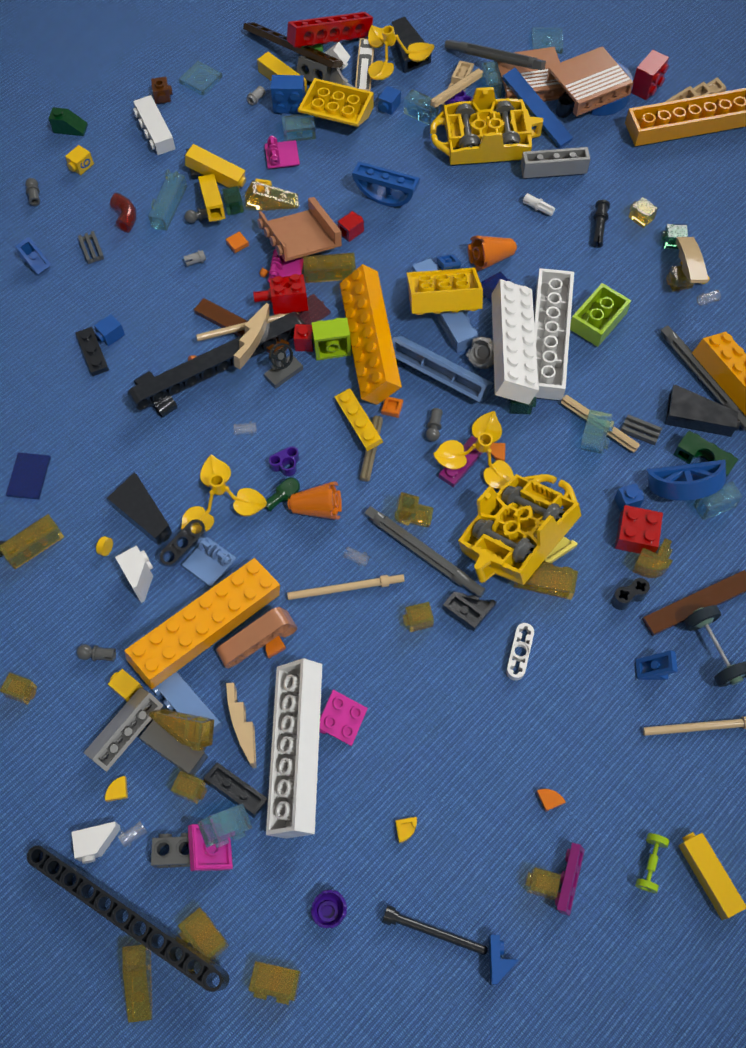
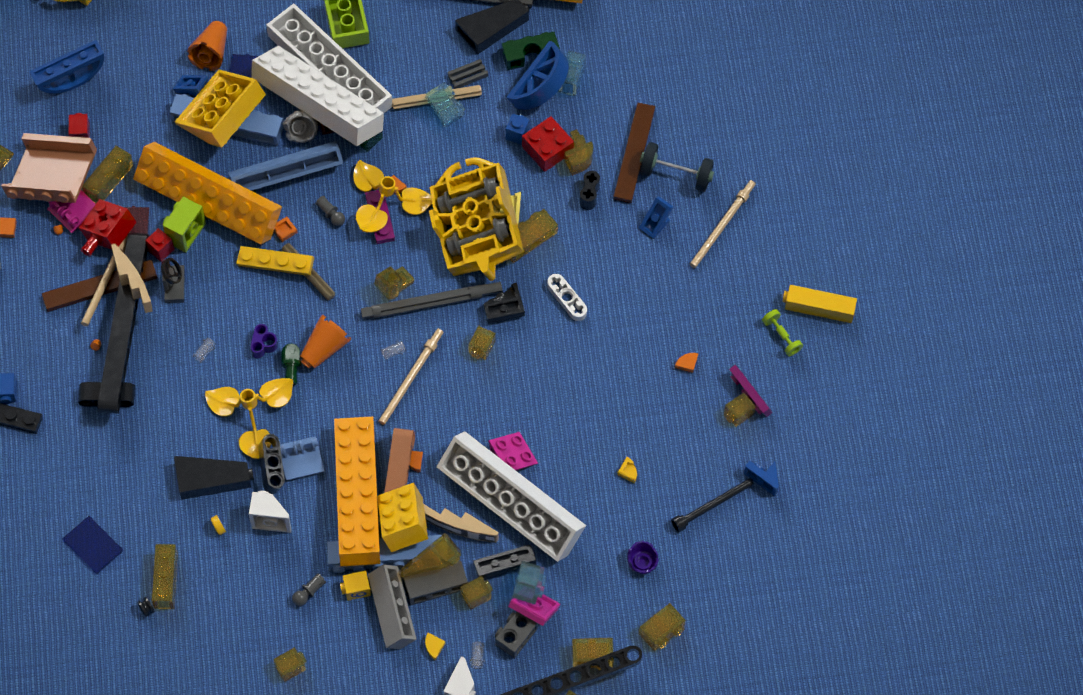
camera: 55 degrees left, 0 degrees up
(202, 675) = (402, 517): none -> yellow brick

